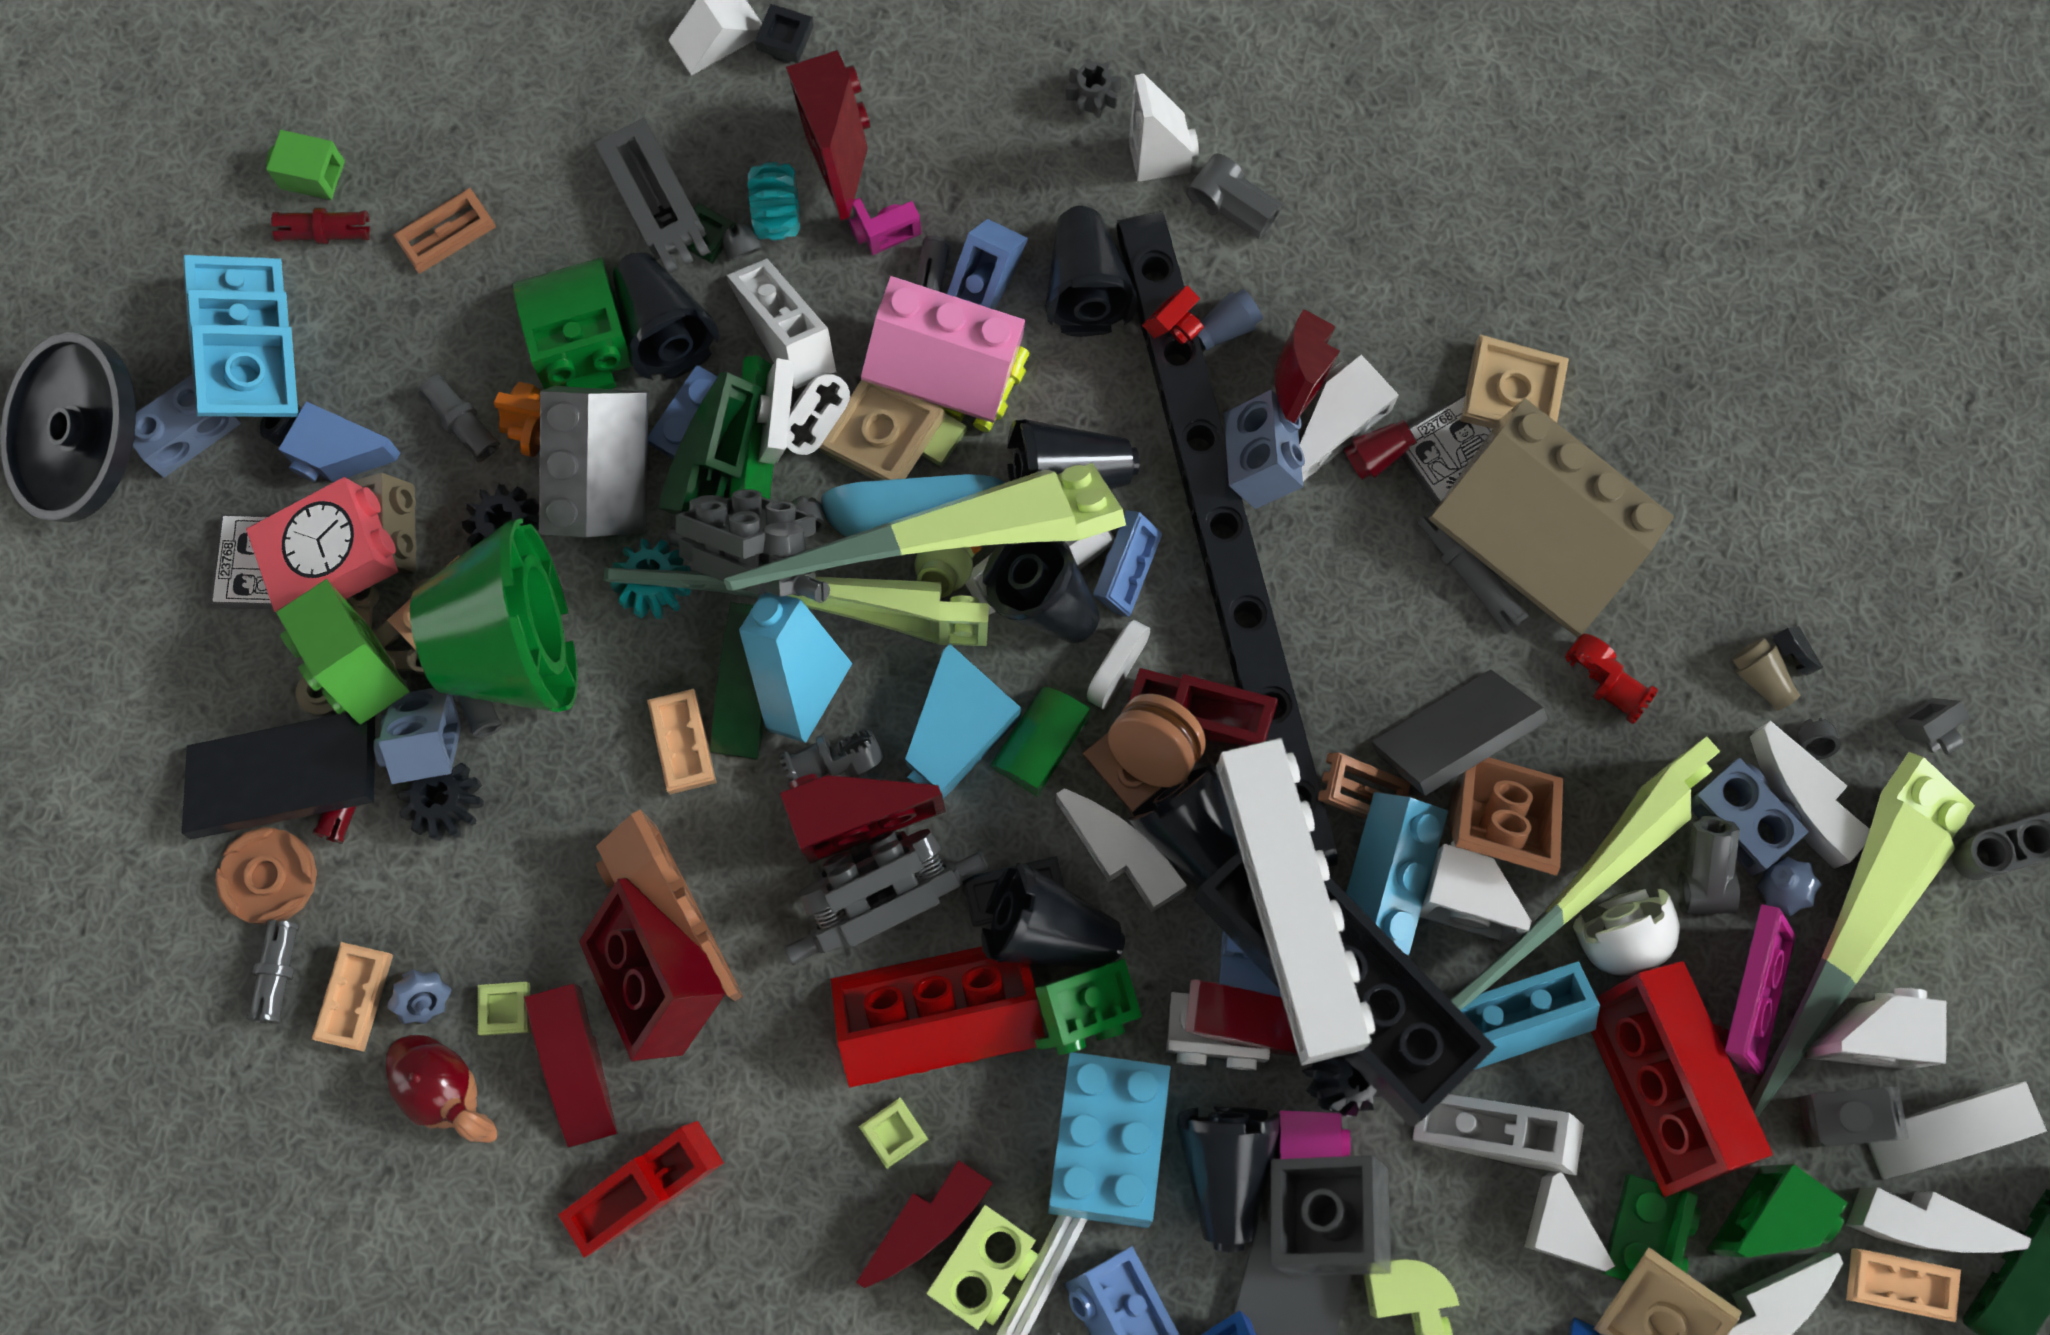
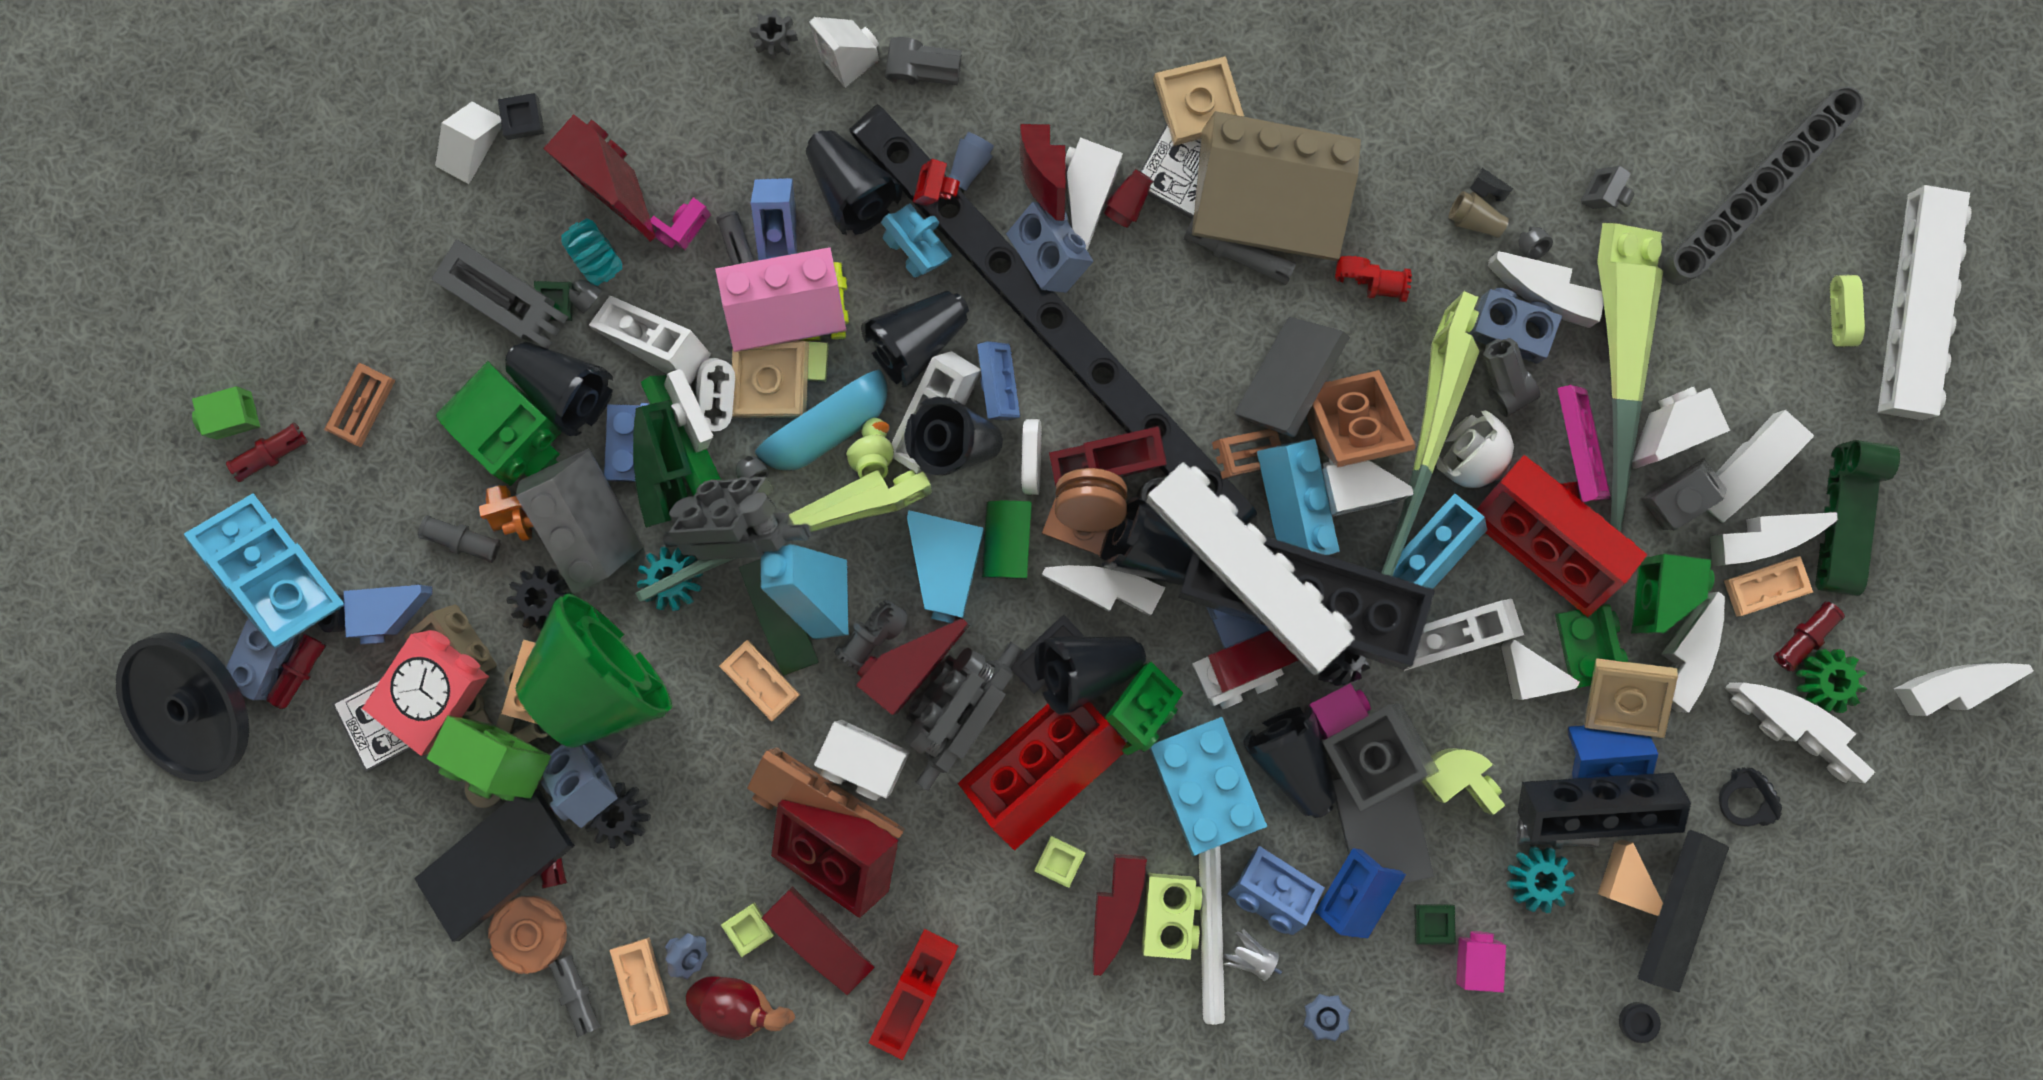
camera: 30 degrees left, 10 degrees up
(205, 460) = (295, 671): none -> dark red axle
(735, 877) = (861, 759): none -> white brick
(1020, 511) = (909, 394): yellowish green plate -> none
(1124, 368) = (916, 238): none -> medium azure hips
(1789, 885) = (1566, 358): sand blue piece -> none

